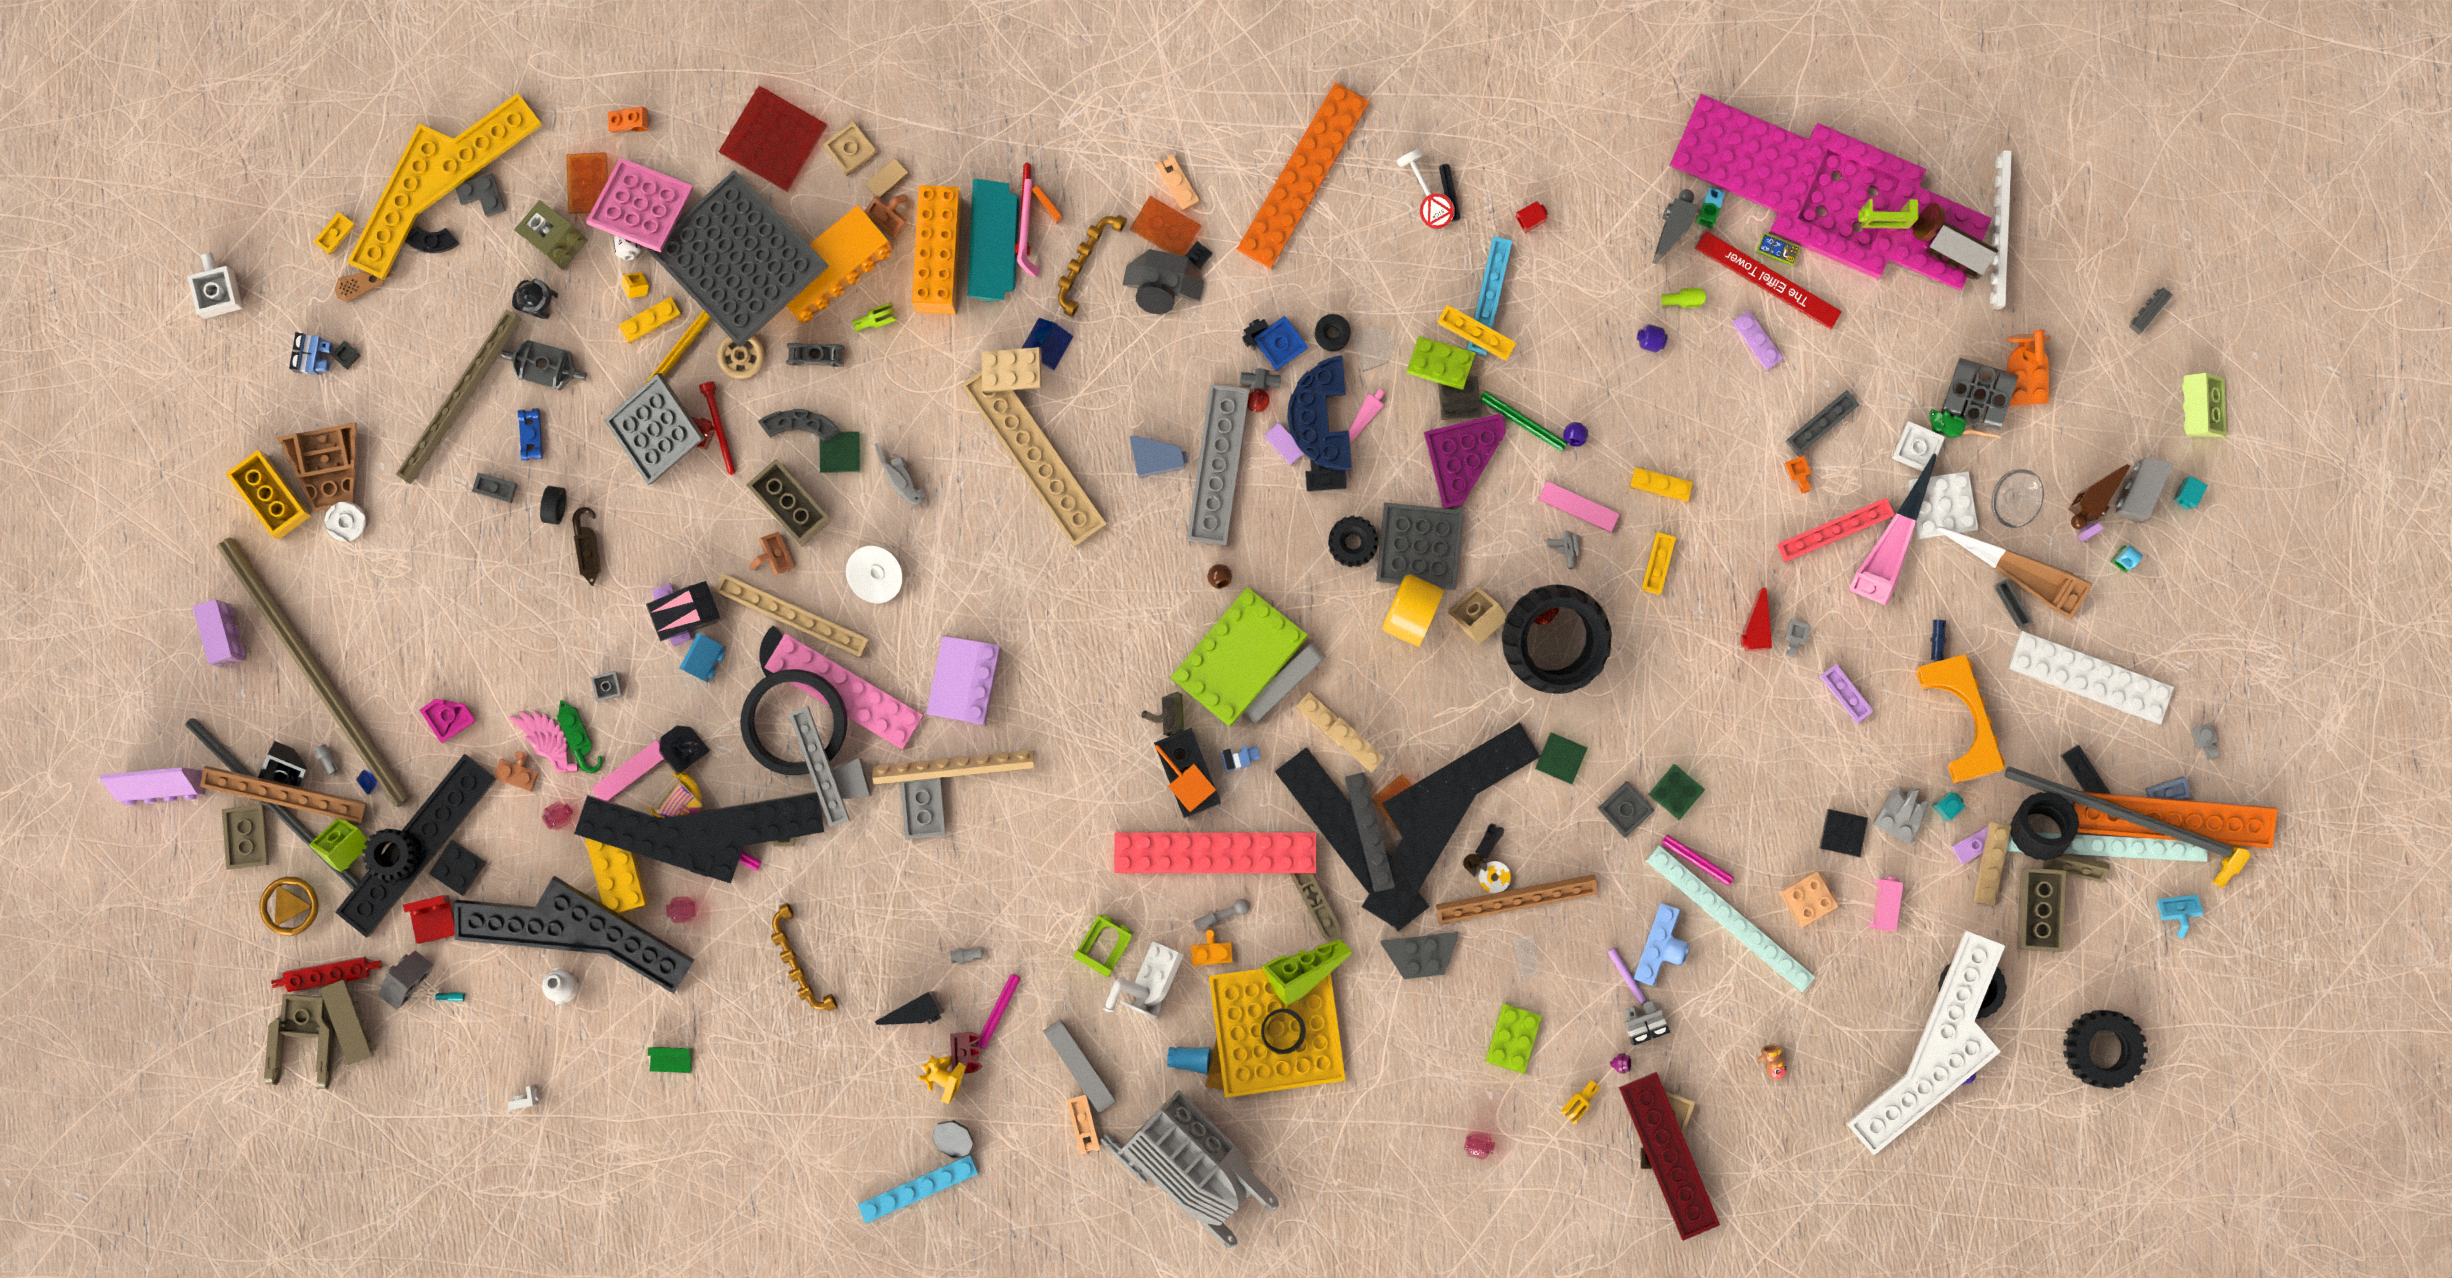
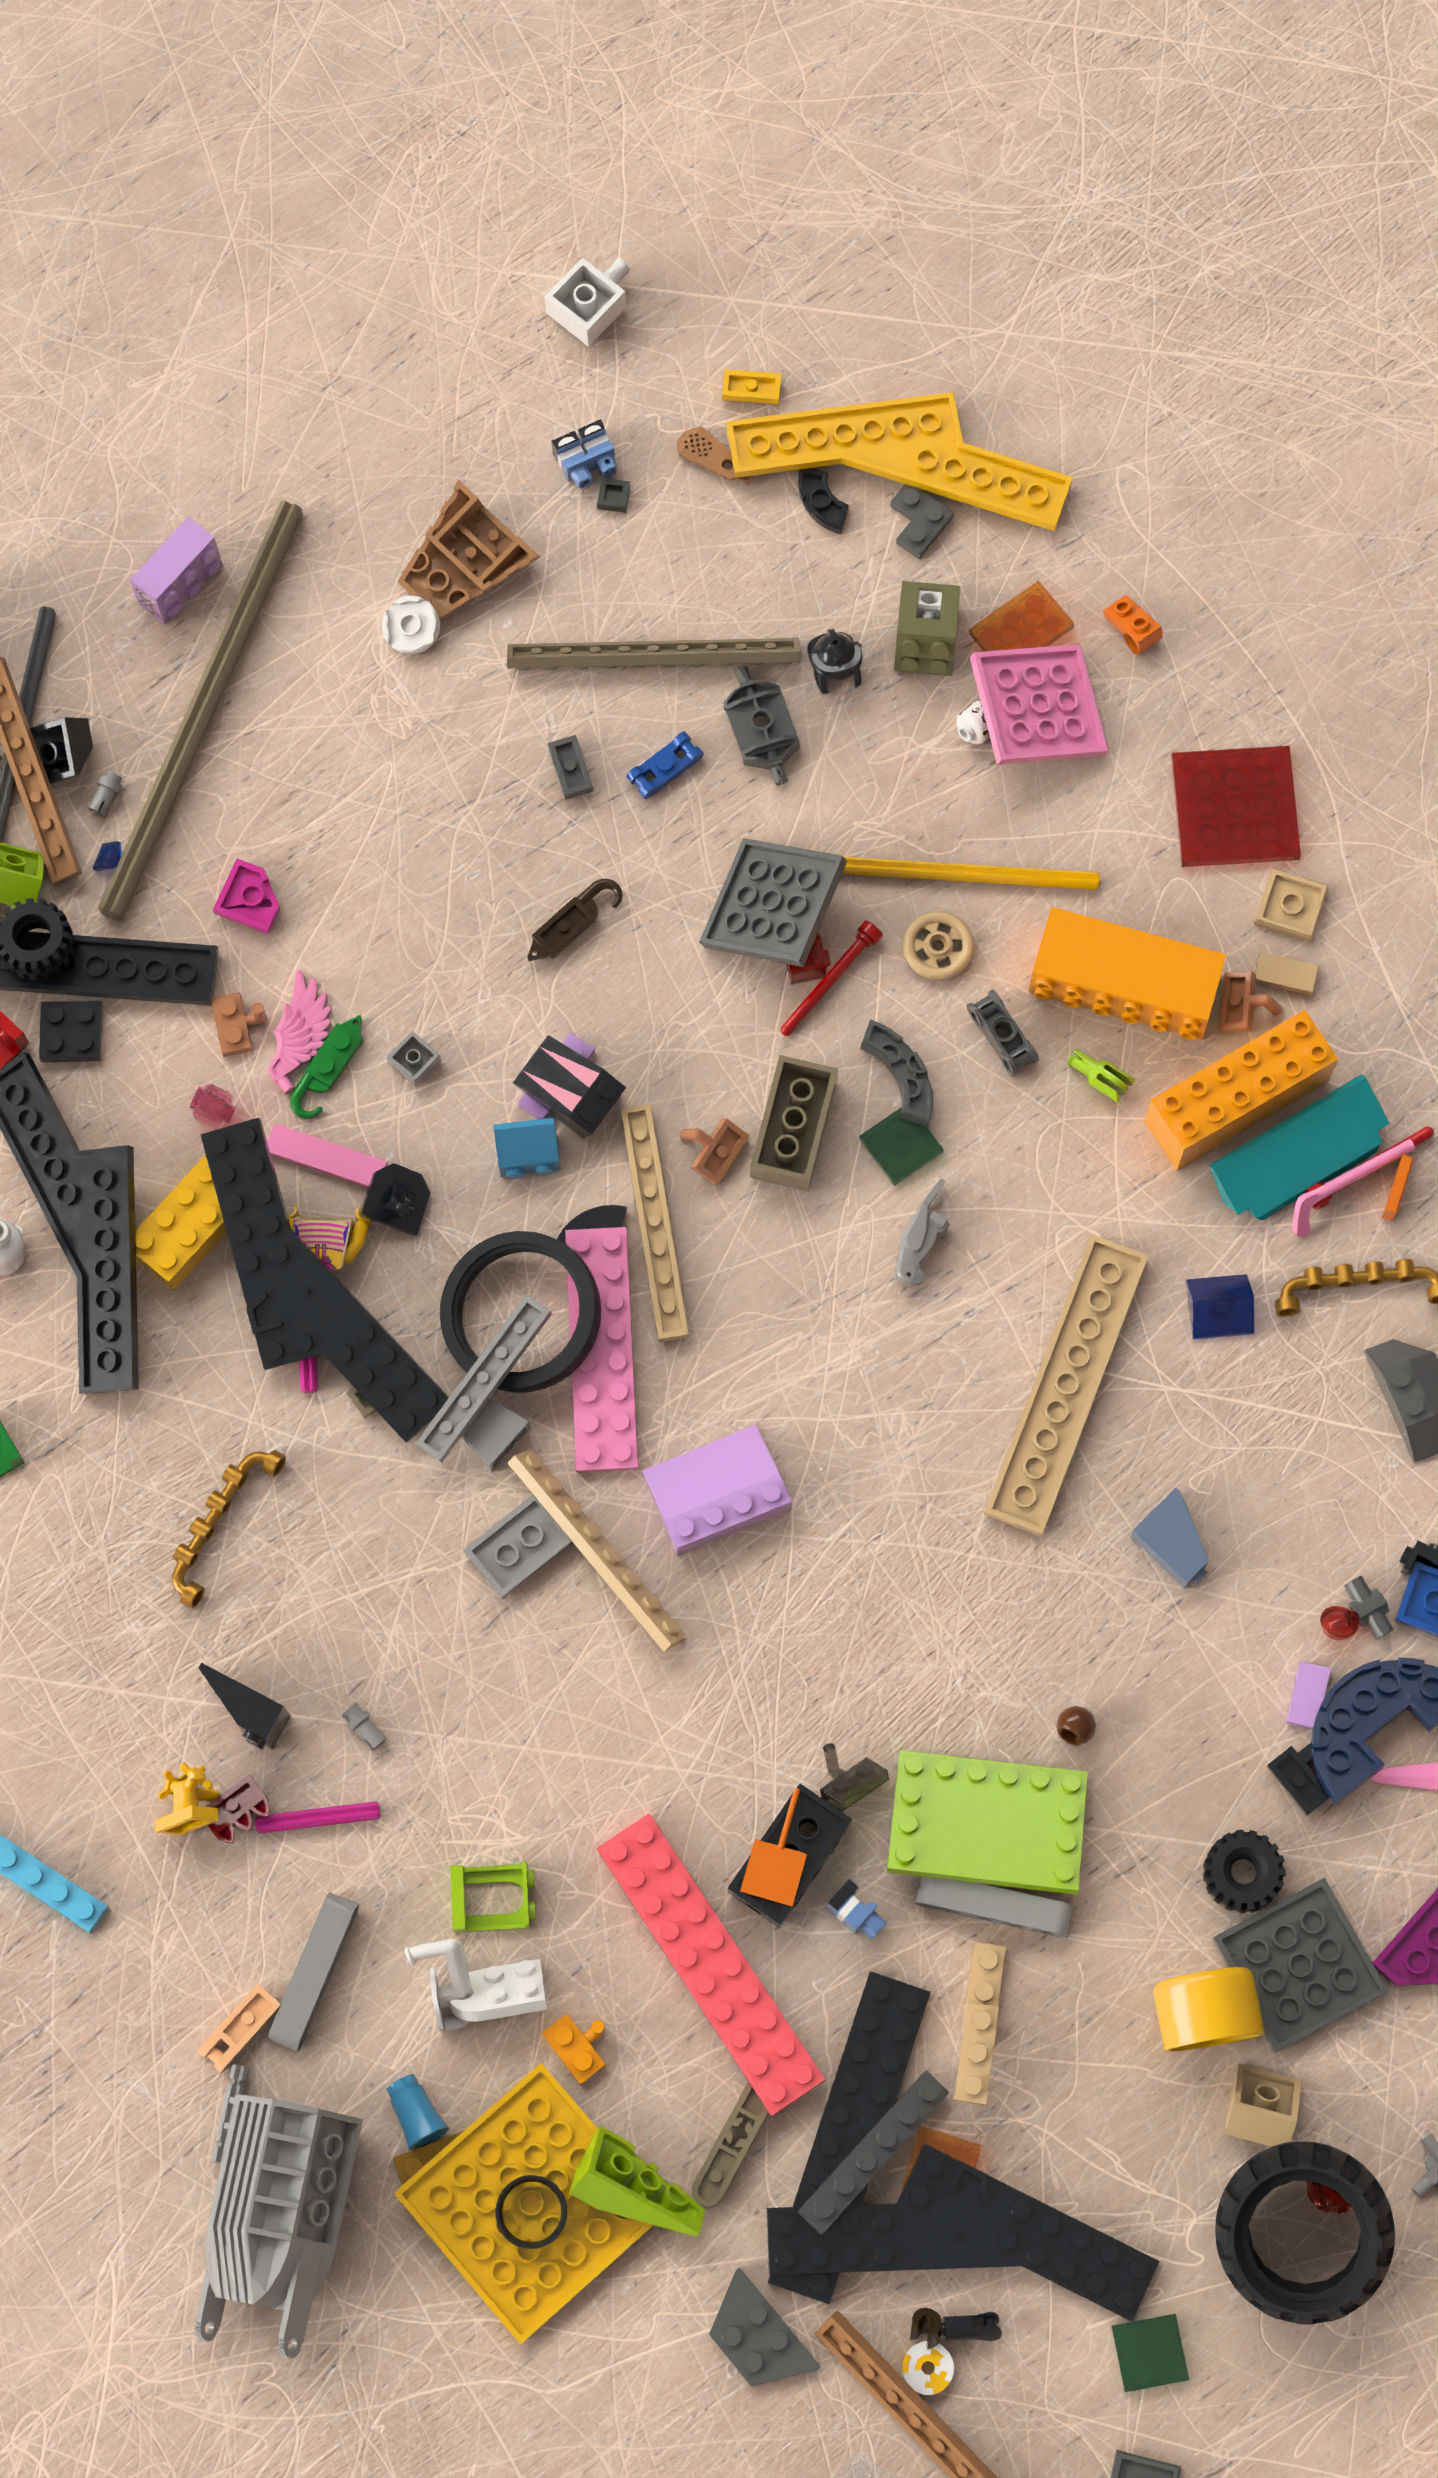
camera: 60 degrees right, 10 degrees down
(268, 494) = (382, 517): yellow brick -> none
(553, 505) = (595, 846): black tyre -> none
(634, 285) = (936, 765): yellow slope -> none
(650, 319) = (905, 811): yellow plate -> none
(681, 909) = (191, 1331): clear pink head -> none
(738, 258) = (1055, 859): dark grey plate -> none
(874, 574) = (775, 1286): white hat -> none
(953, 1139) = (113, 1868): piece -> none
(1011, 369) = (1155, 1282): tan plate -> none
(1155, 298) = (1376, 1401): black tile -> none
(1218, 465) = (1219, 1627): light grey plate -> none
(1240, 907) = (660, 2046): light grey pin -> none

